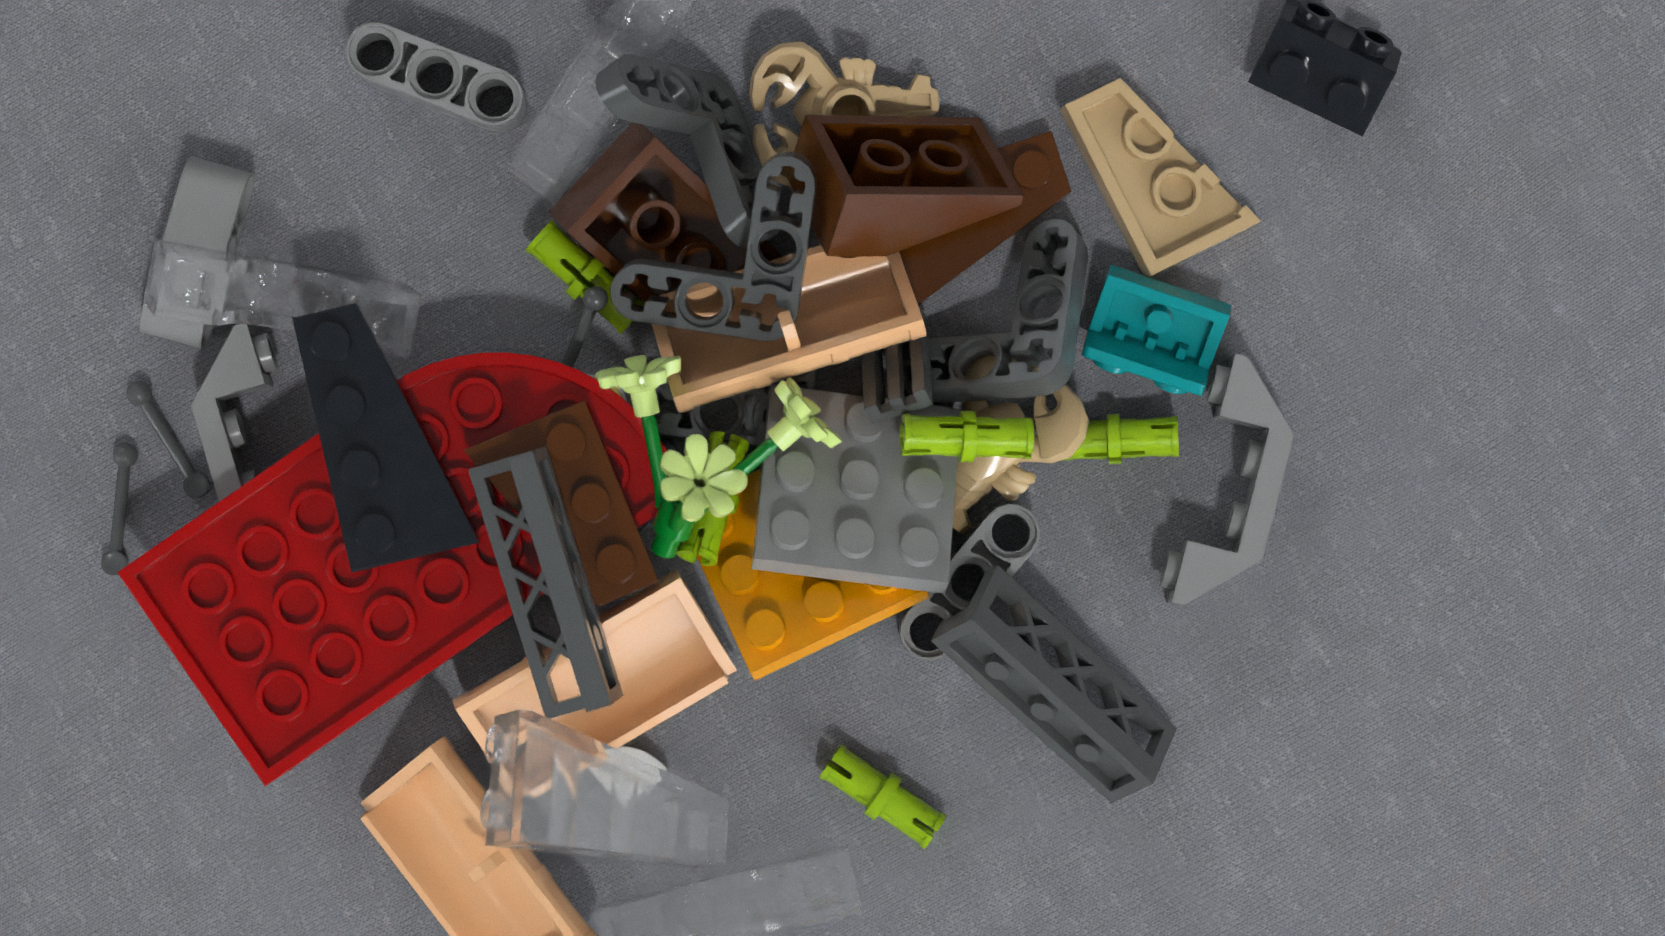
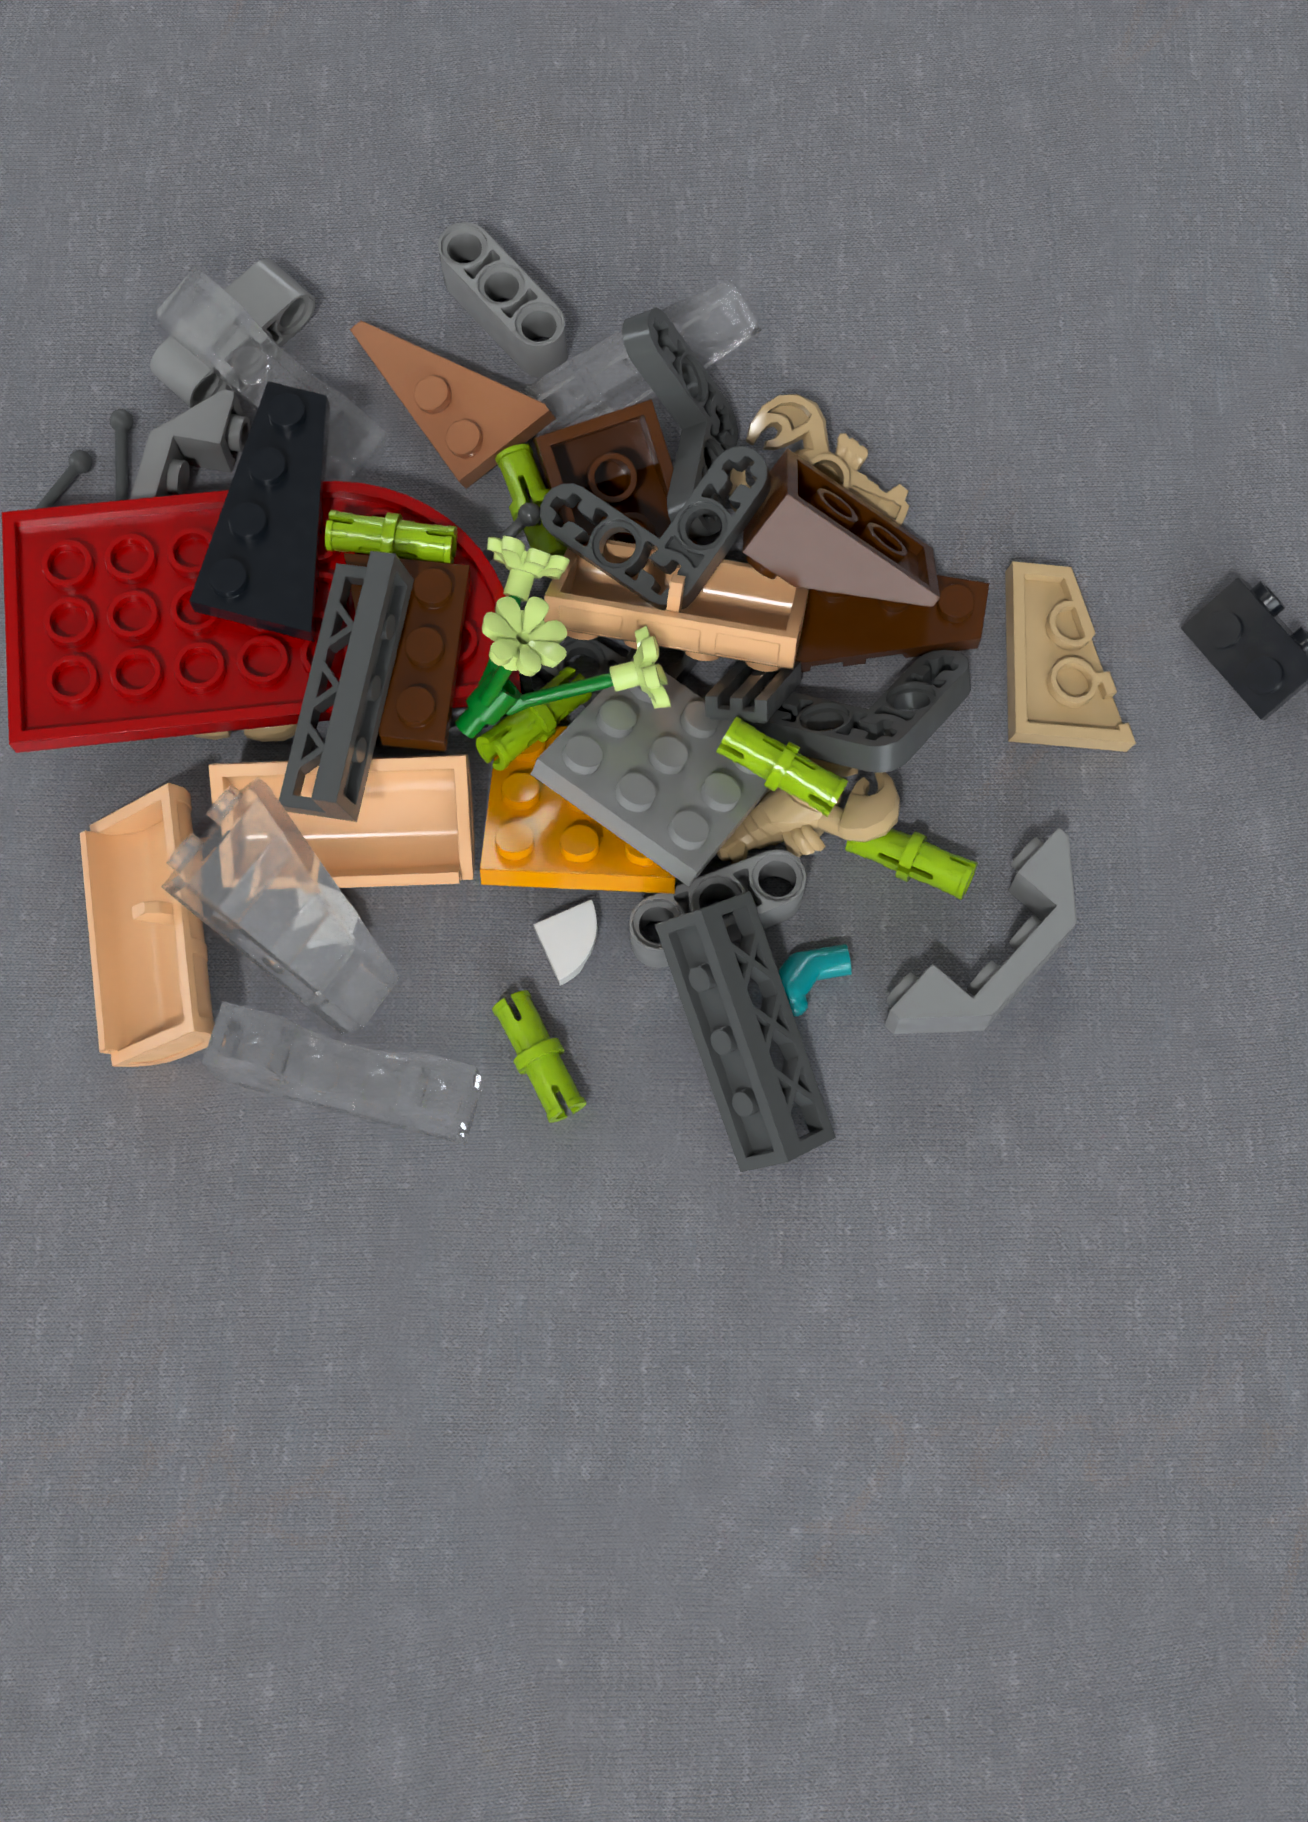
camera: 30 degrees right, 15 degrees down
(464, 218) = (456, 408): none -> nougat wing
(496, 410) = (390, 535): none -> lime pin
(850, 676) = (568, 939): none -> white tile
(1071, 594) = (807, 967): none -> teal arm
(1155, 331) = (996, 783): teal bracket -> none

